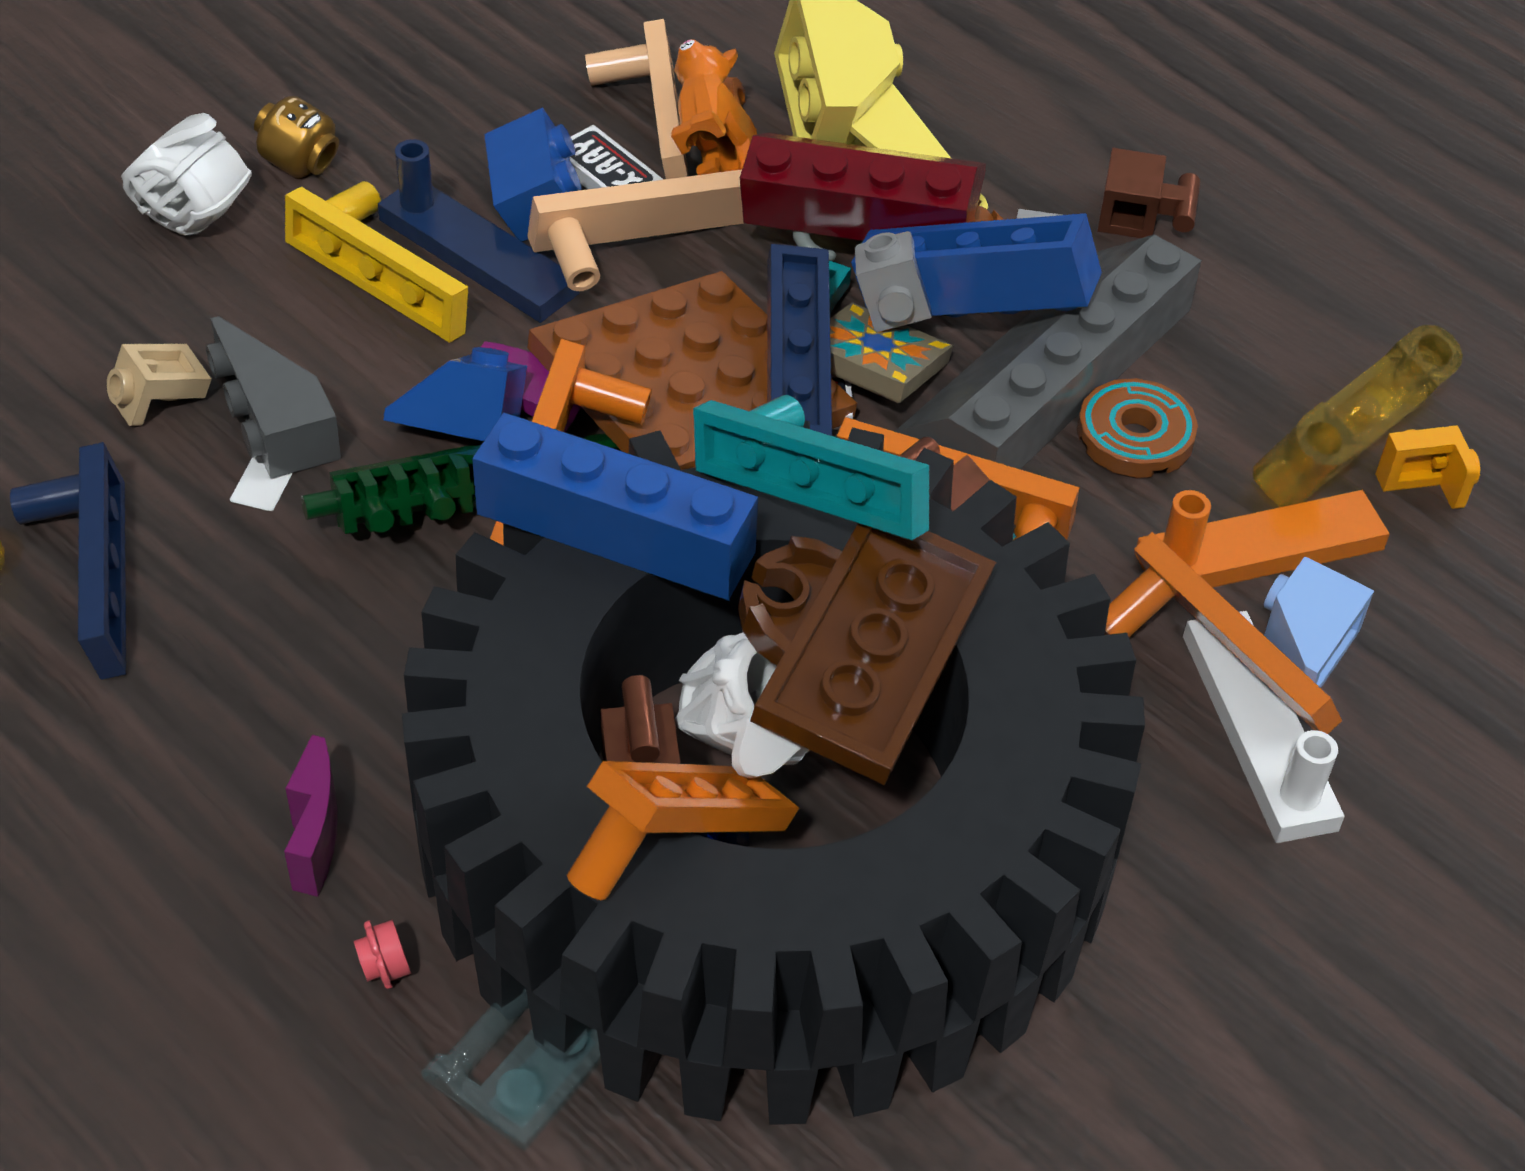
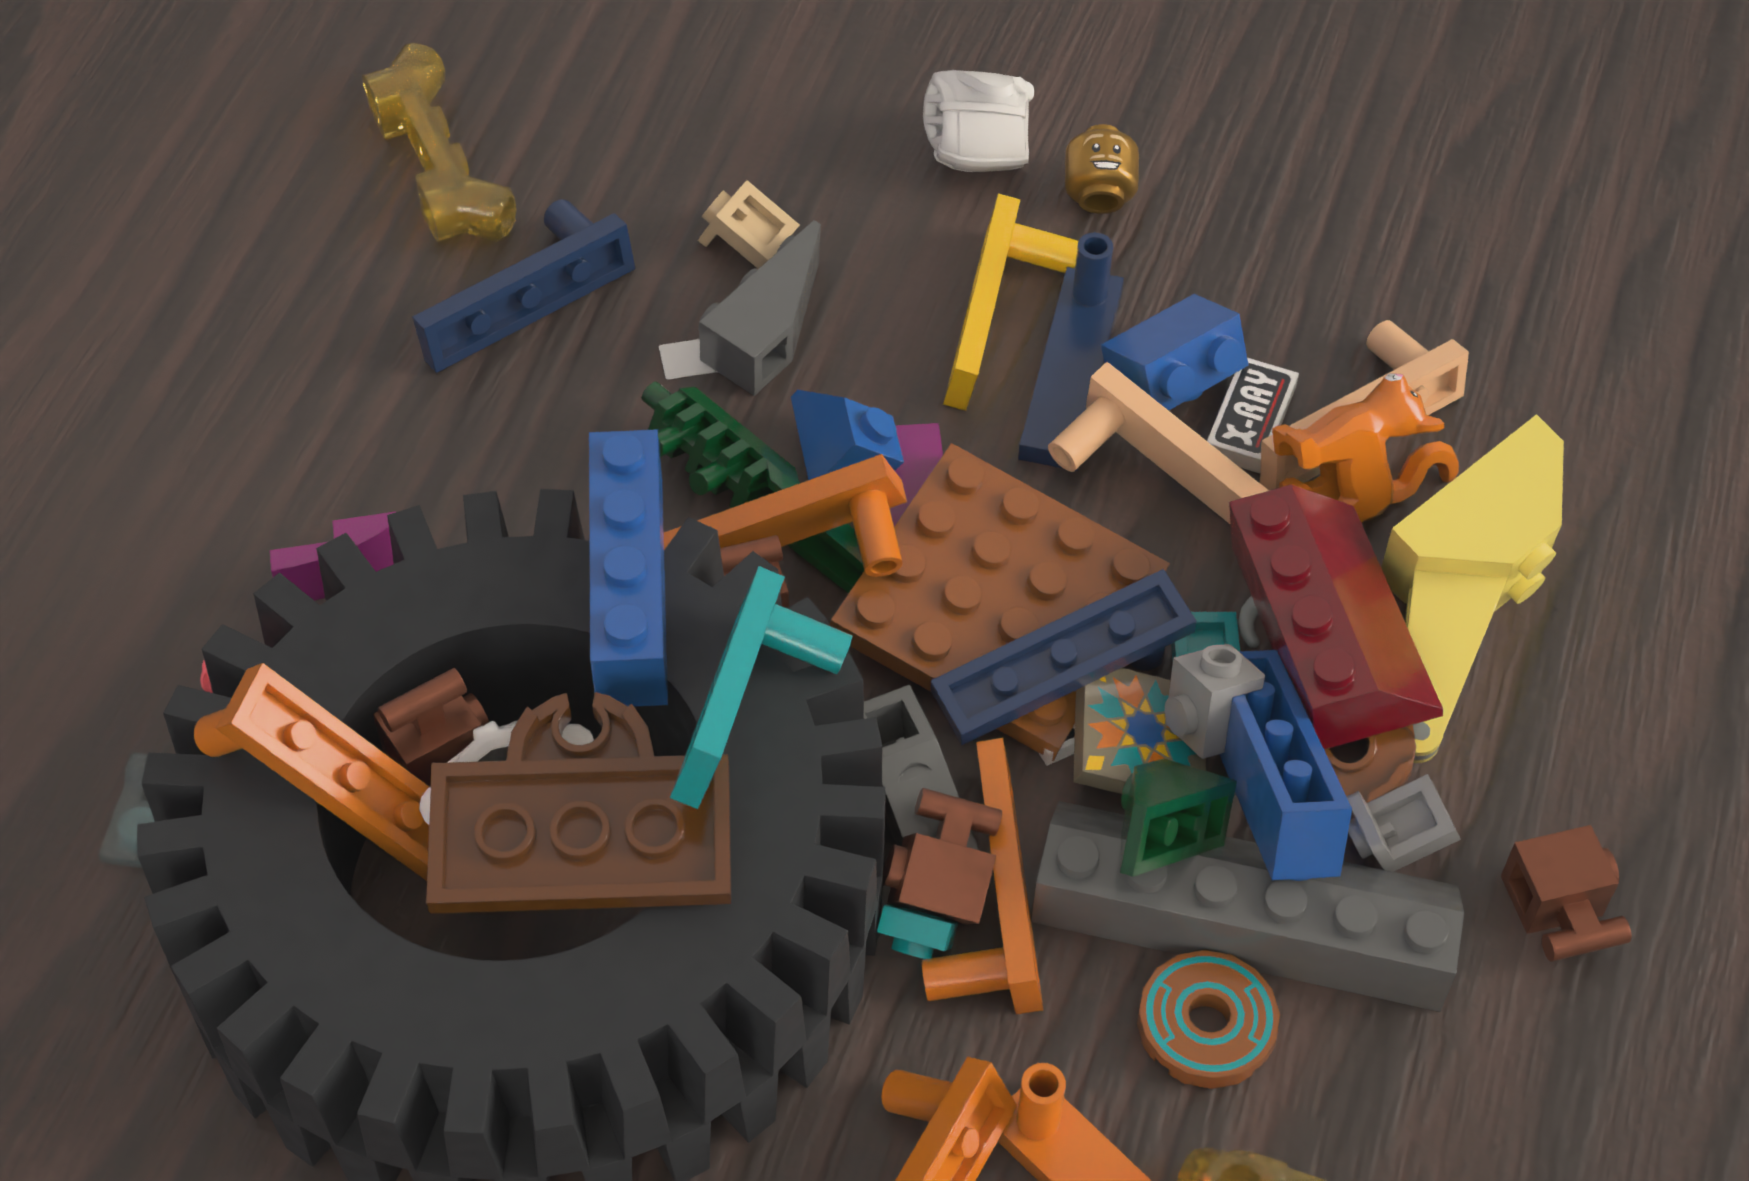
camera: 65 degrees right, 5 degrees up
(994, 342) = (1172, 814): none -> dark green slope

